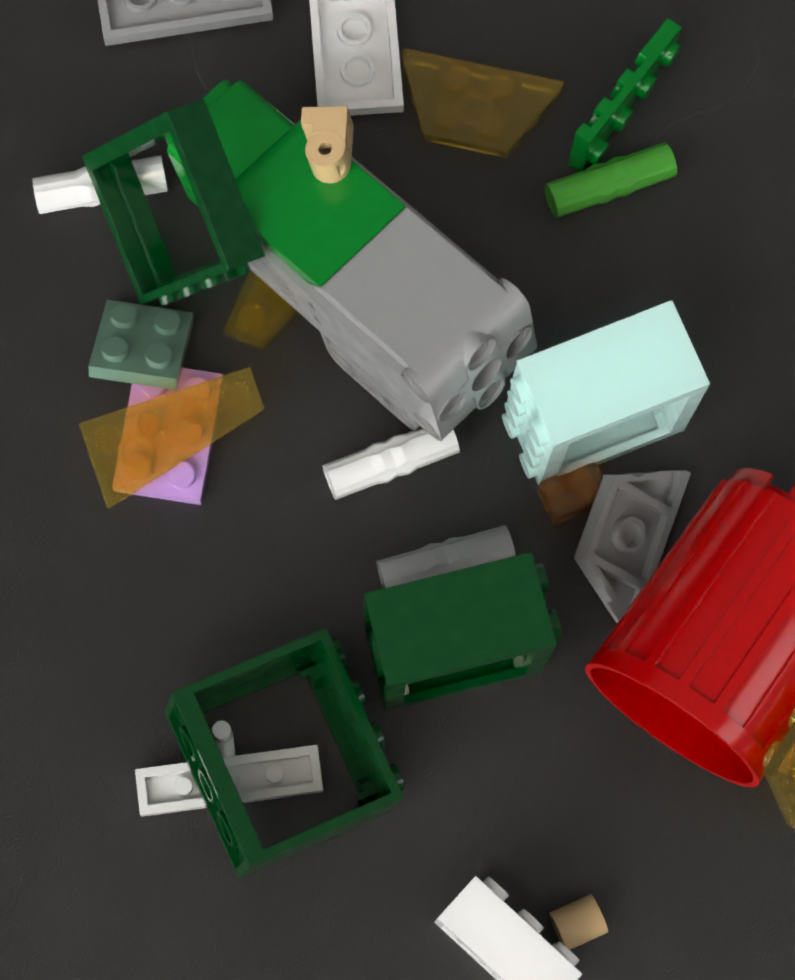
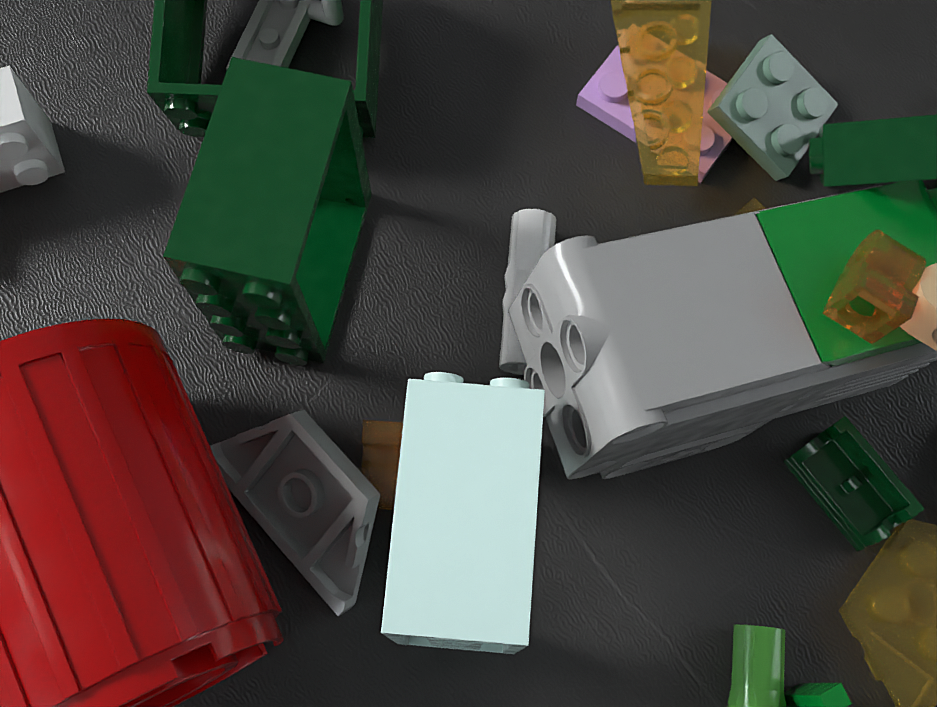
camera: 120 degrees right, 5 degrees down
(338, 192) = (883, 275): none -> clear orange leg
(425, 171) = (853, 484): none -> dark green hinge
(446, 557) = (387, 293): light grey axle -> none

